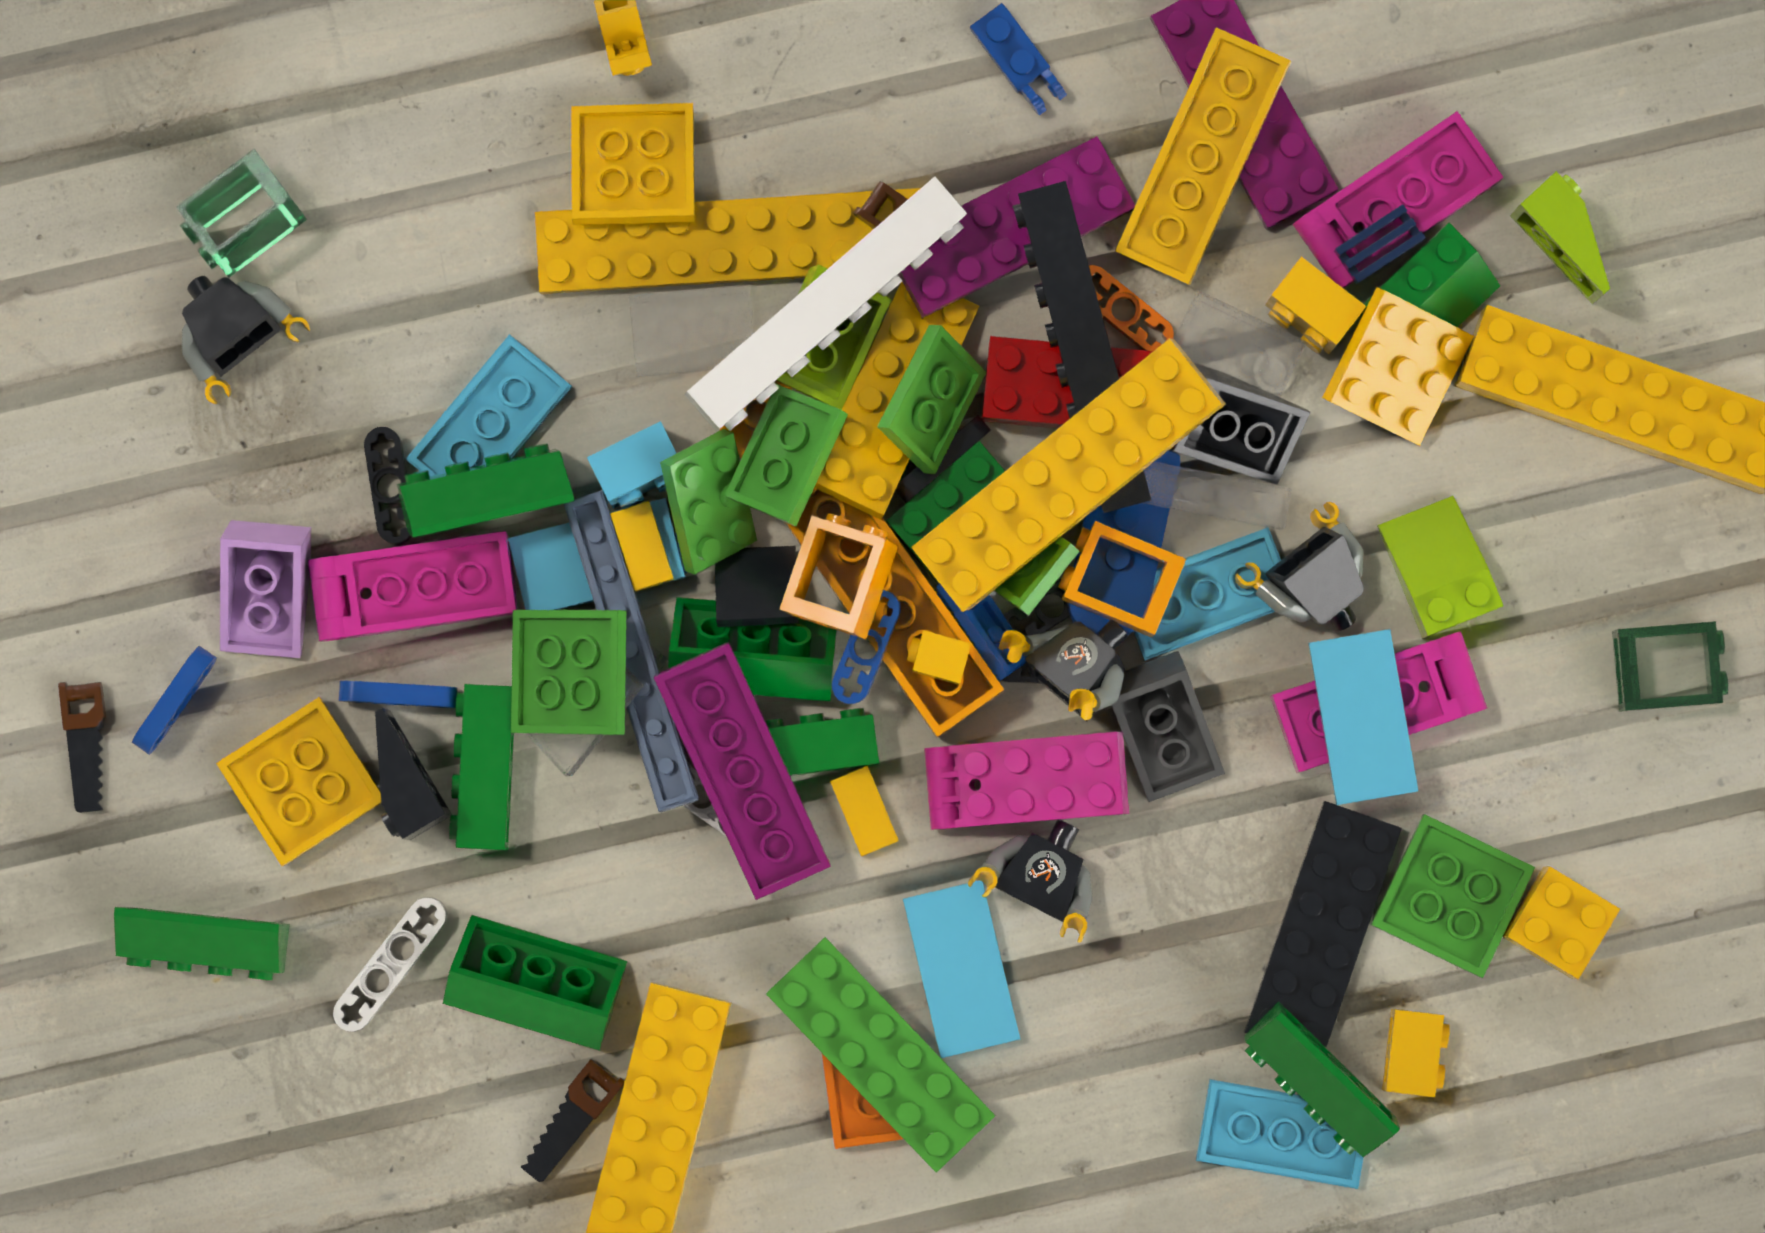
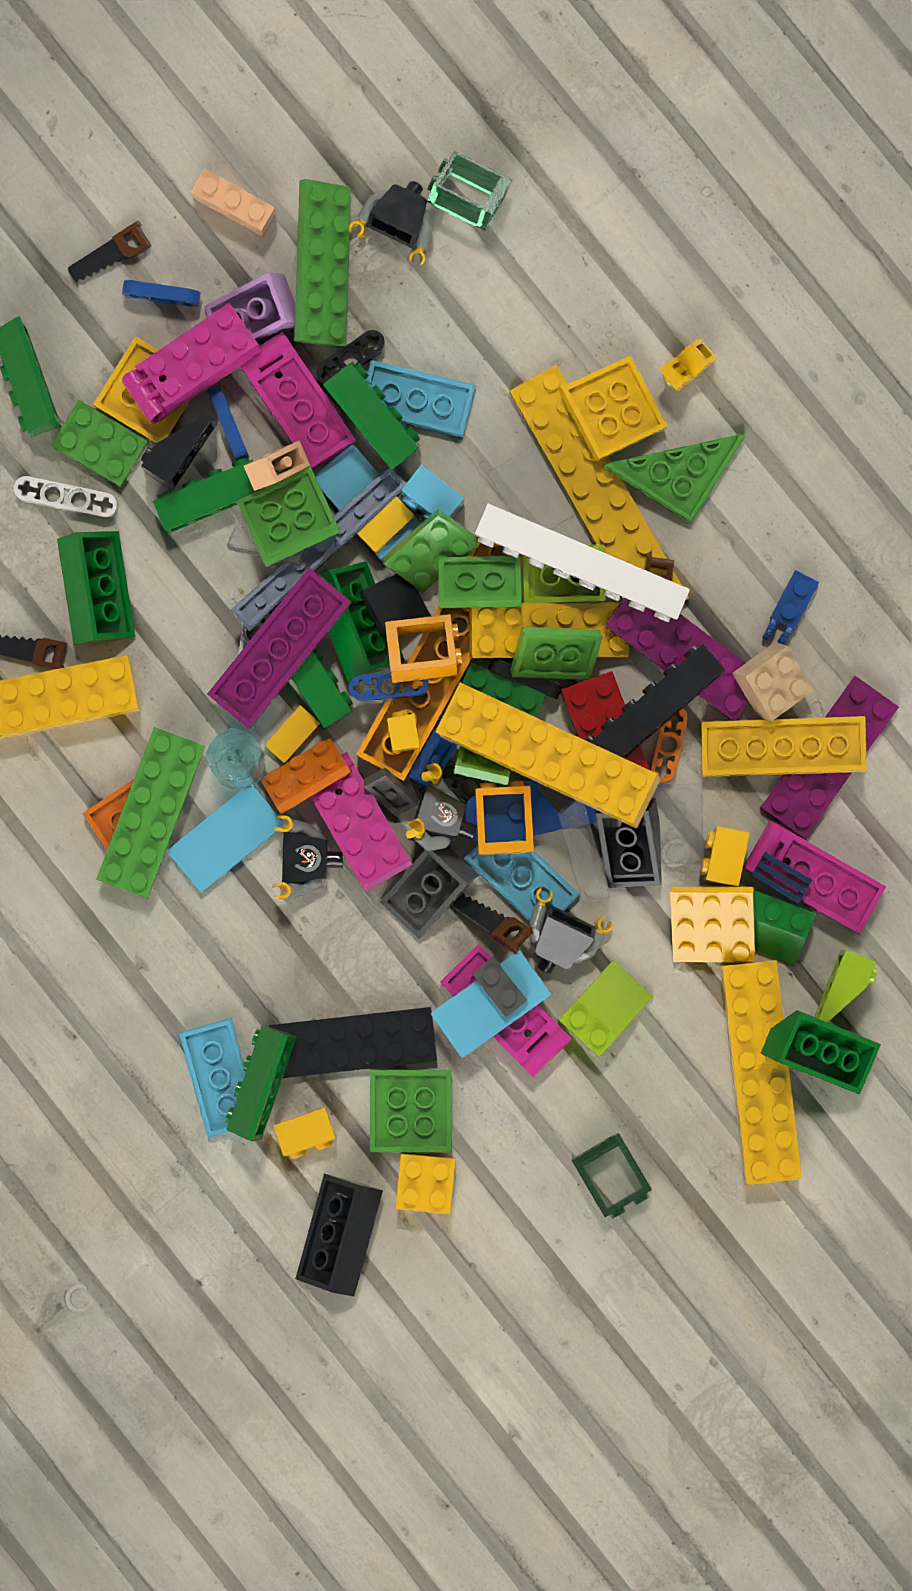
camera: 65 degrees right, 0 degrees up
(98, 541) = (233, 202): none -> light nougat brick
(242, 461) = (322, 263): none -> bright green plate
(293, 704) = (191, 364): none -> dark pink hinge
(338, 883) = (99, 443): none -> bright green plate
(491, 654) = (276, 465): none -> light nougat brick
(767, 120) = (679, 476): none -> bright green tile
(847, 886) = (236, 744): none -> clear light blue brick
(931, 819) = (305, 775): none -> orange plate
(1010, 714) = (390, 792): none -> dark grey plate
(1109, 128) = (773, 681): none -> tan brick
(1253, 660) = (494, 923): none -> piece
(1347, 693) = (499, 986): none -> dark grey plate
(1574, 1074) = (339, 1235): none -> black slope
(1640, 303) = (821, 1050): none -> green slope

